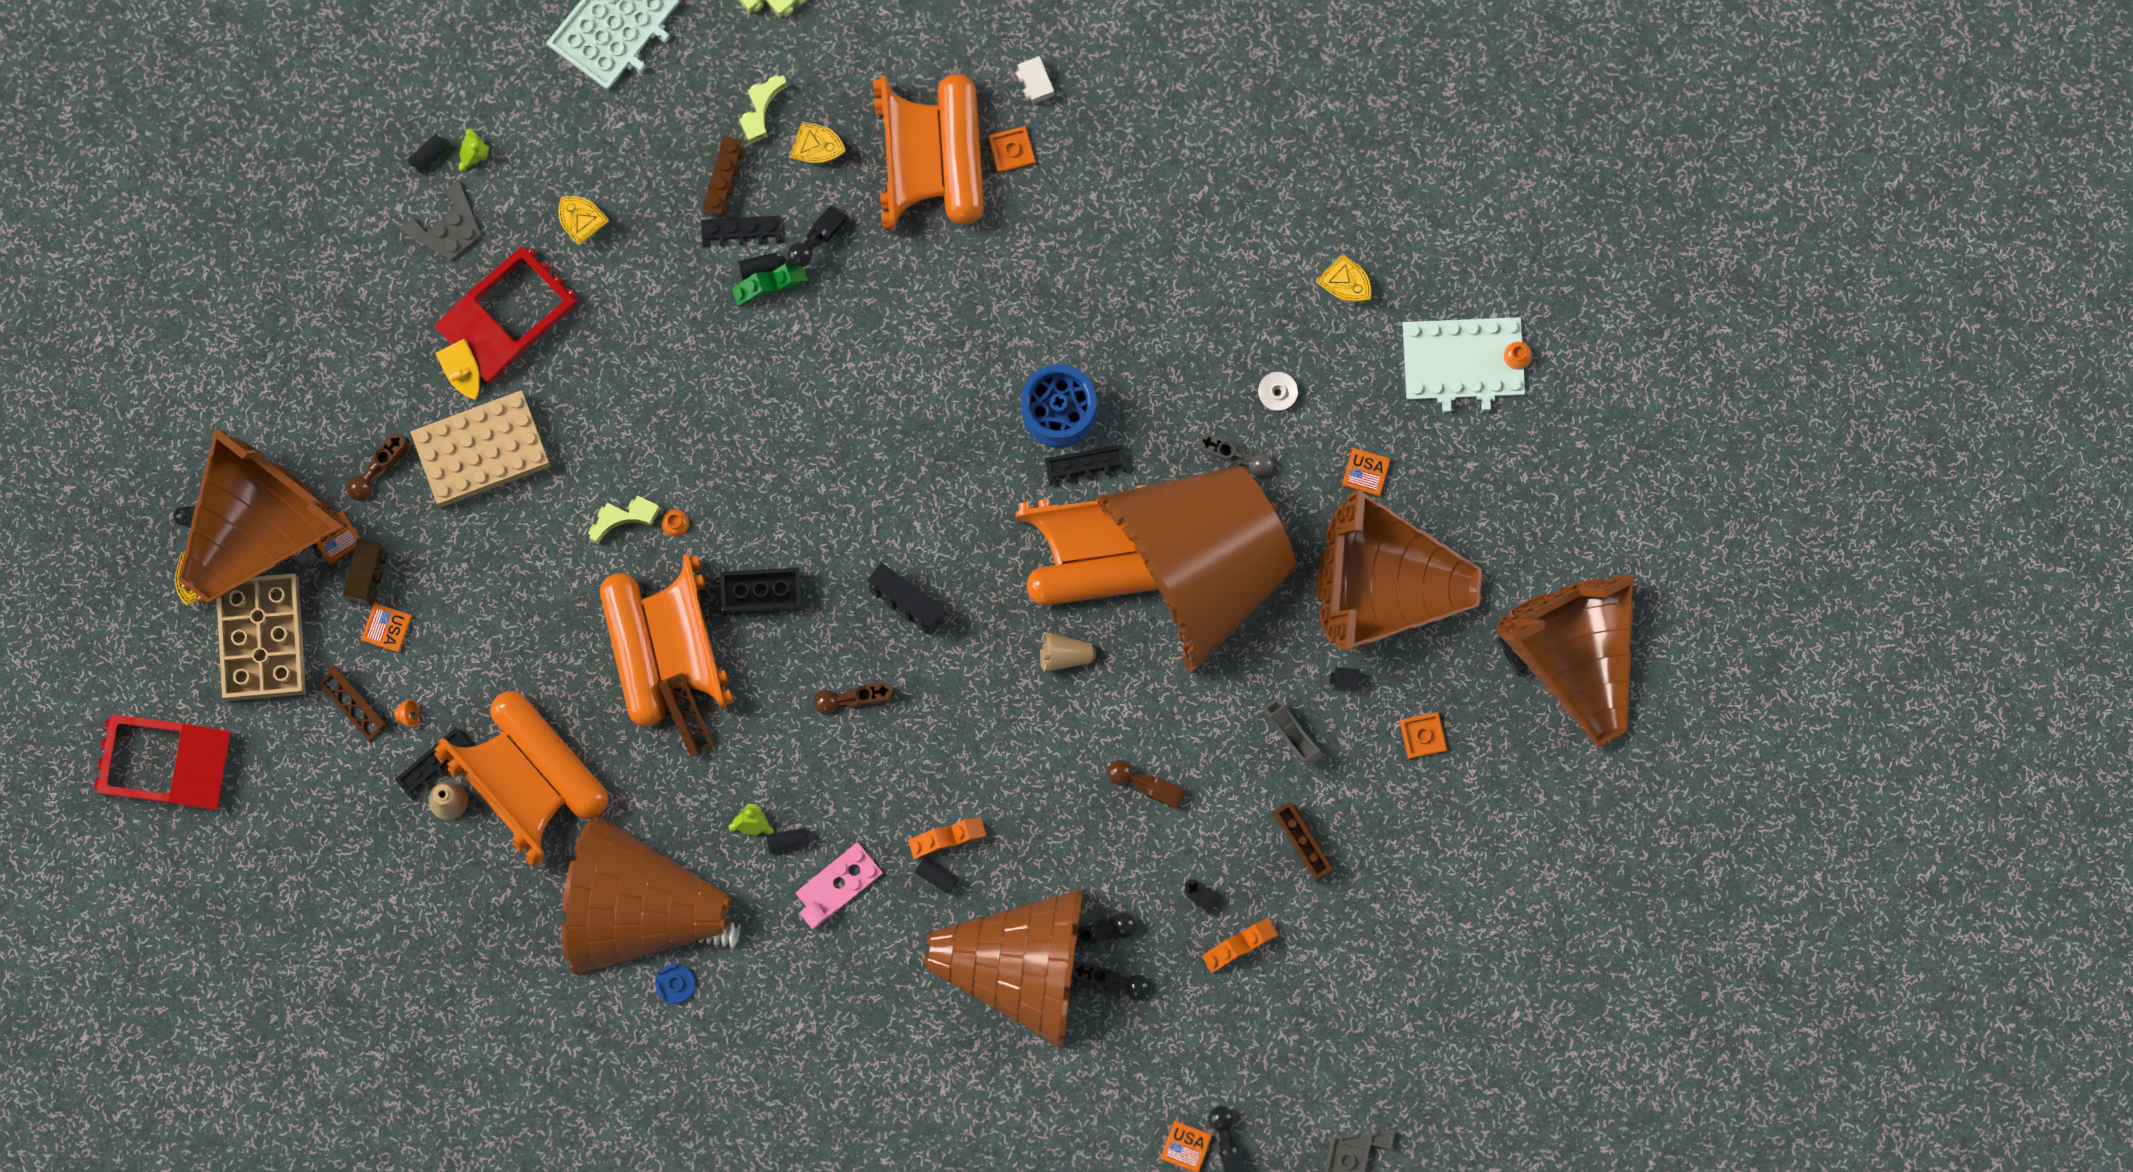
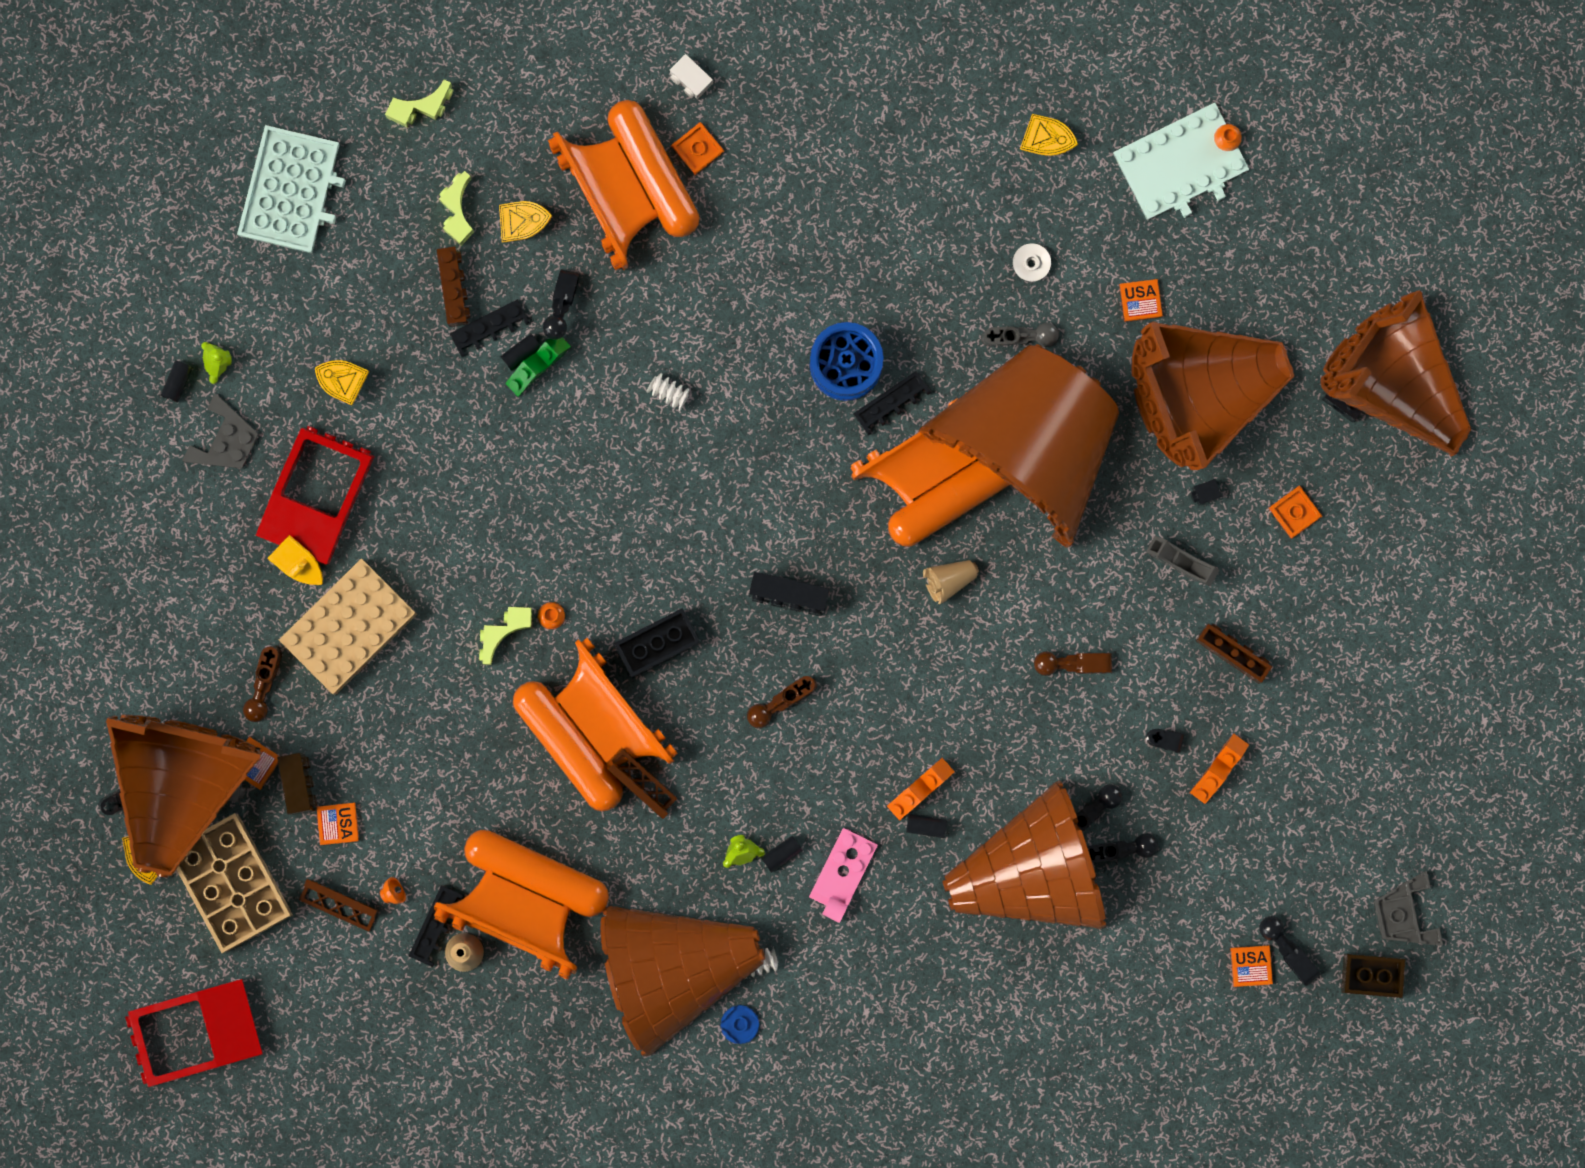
camera: 30 degrees left, 5 degrees up
(879, 362) = (669, 391): none -> white piece

